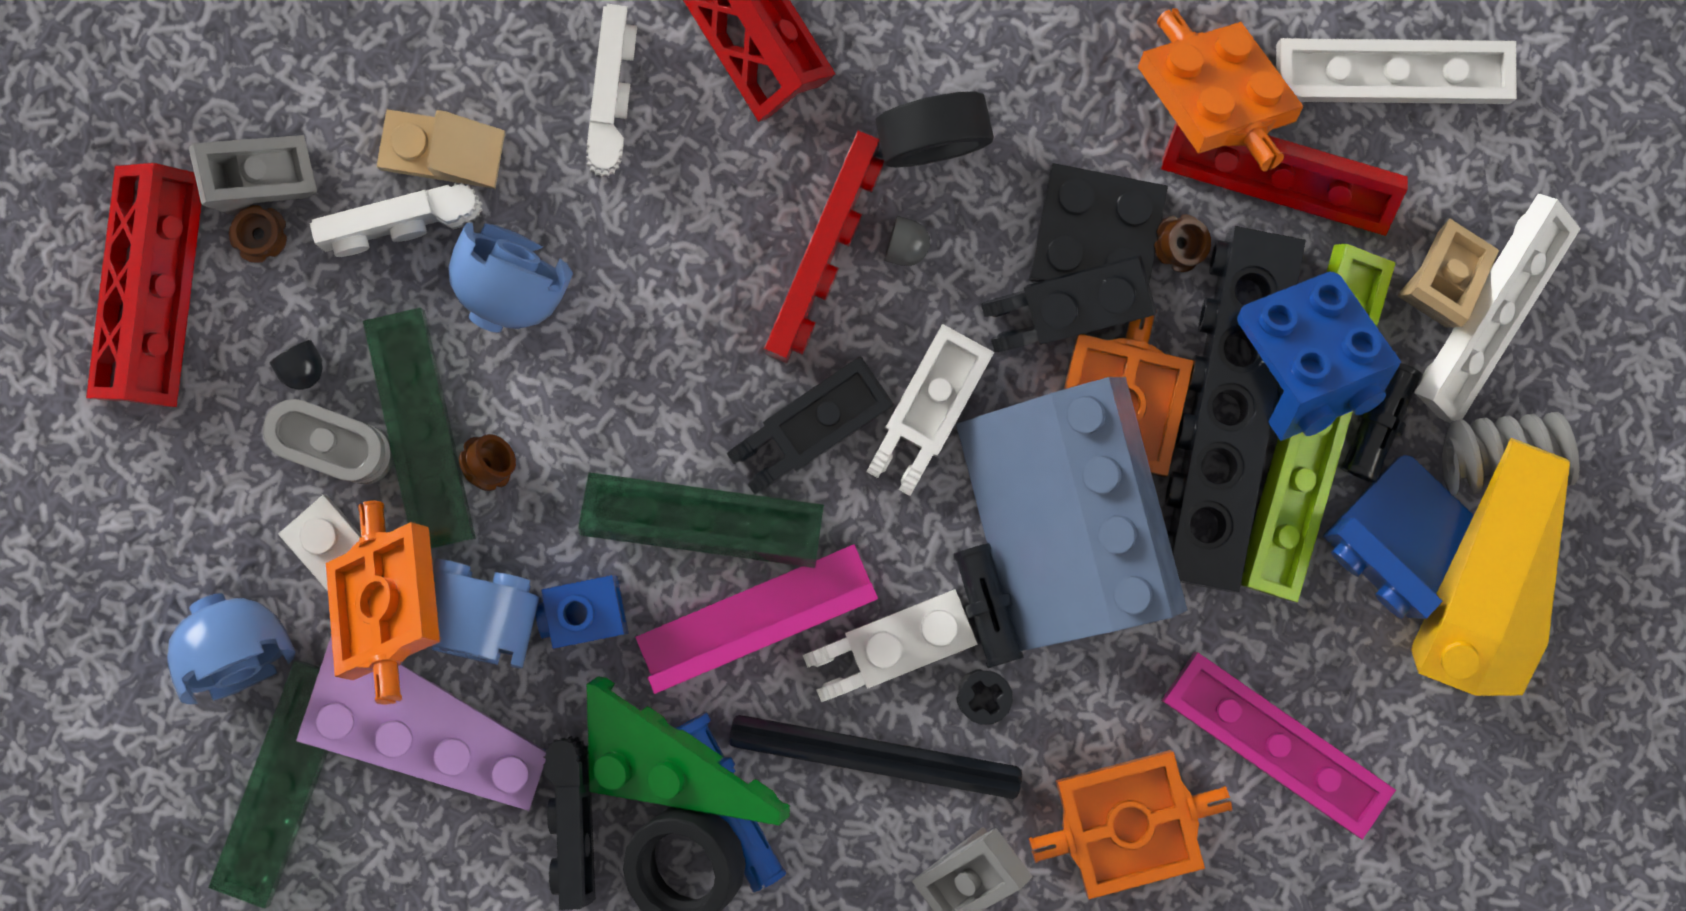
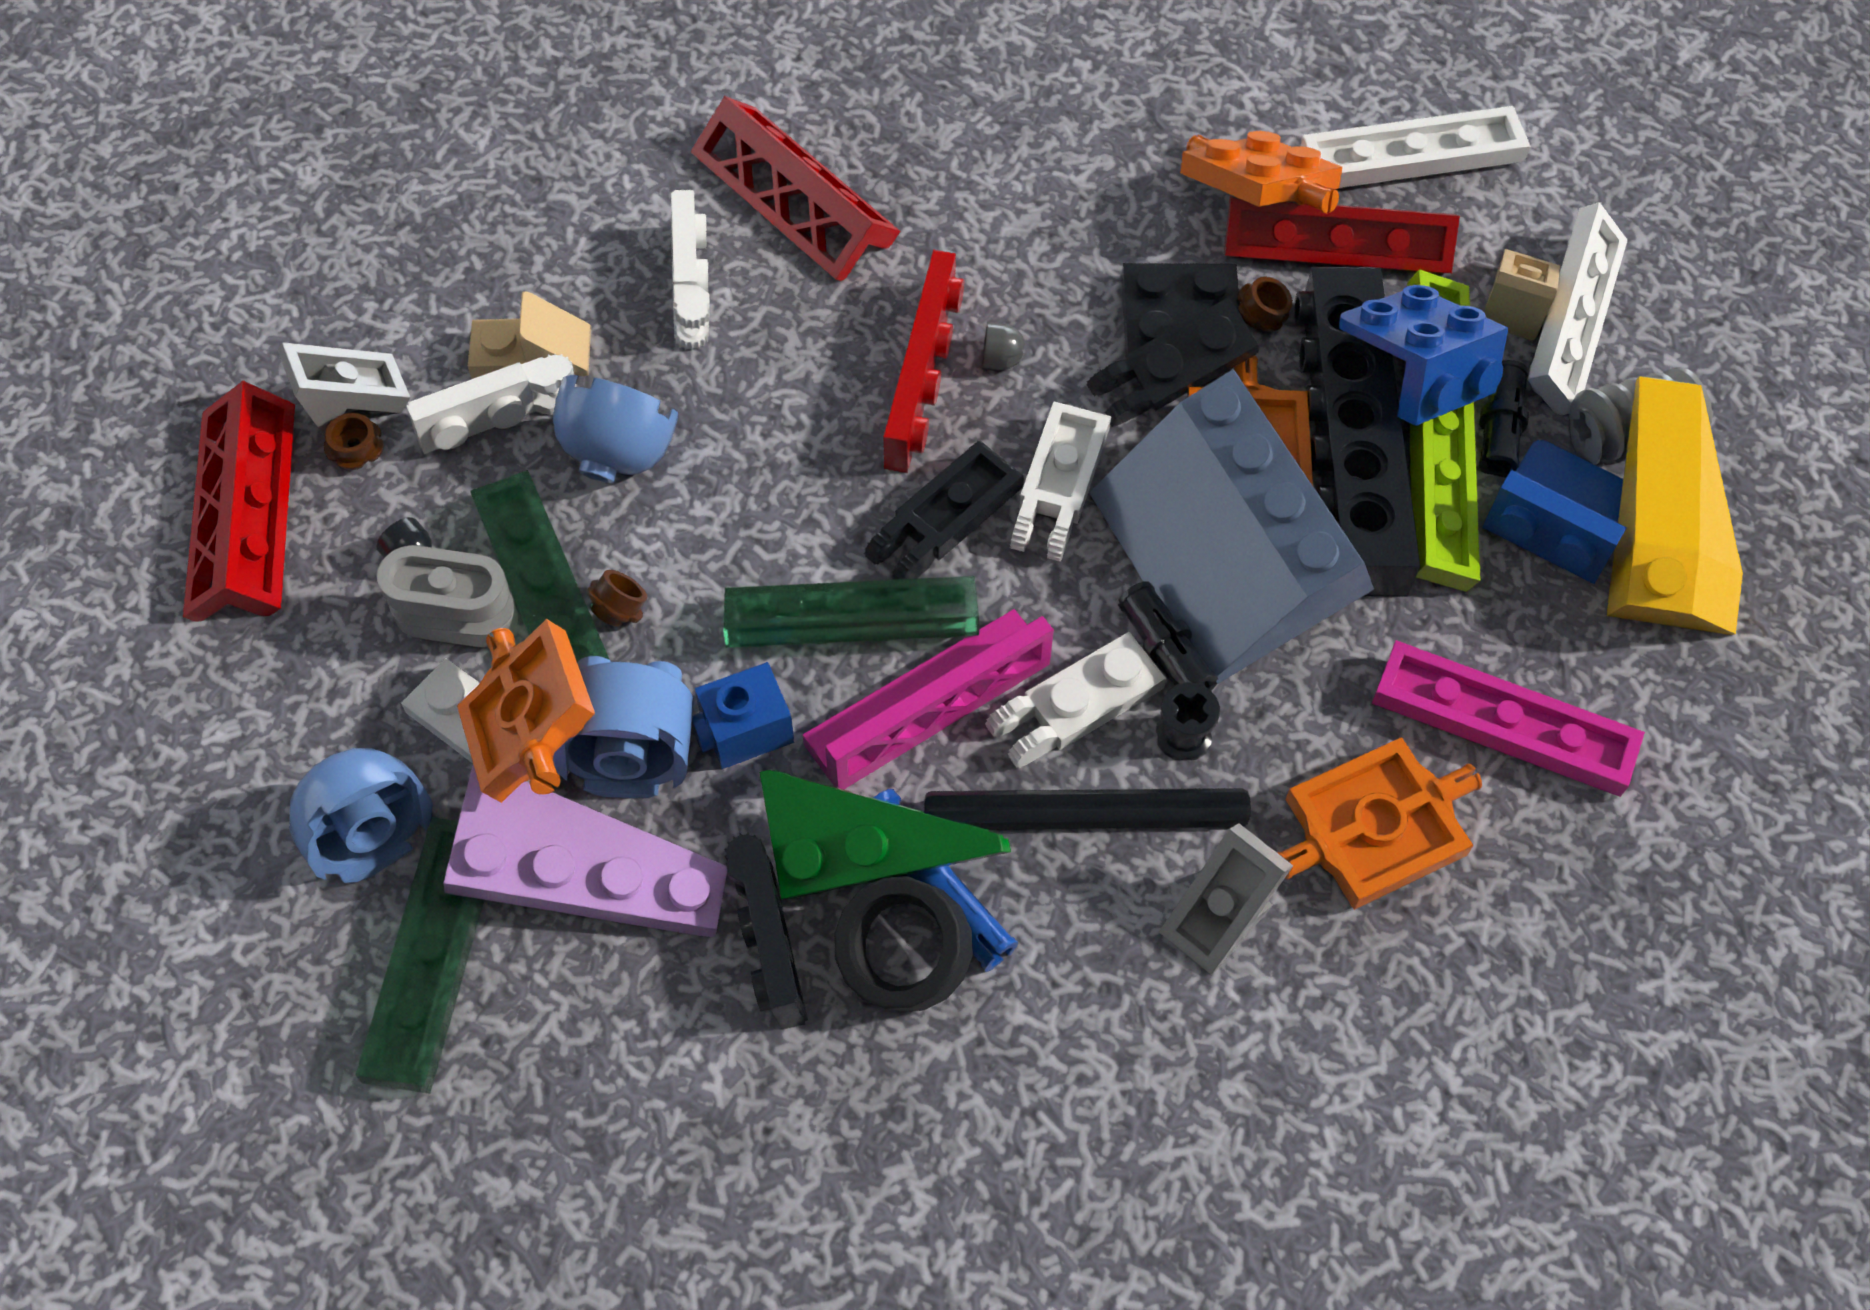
camera: 10 degrees left, 25 degrees down
(934, 129) = (991, 221): black tyre -> none

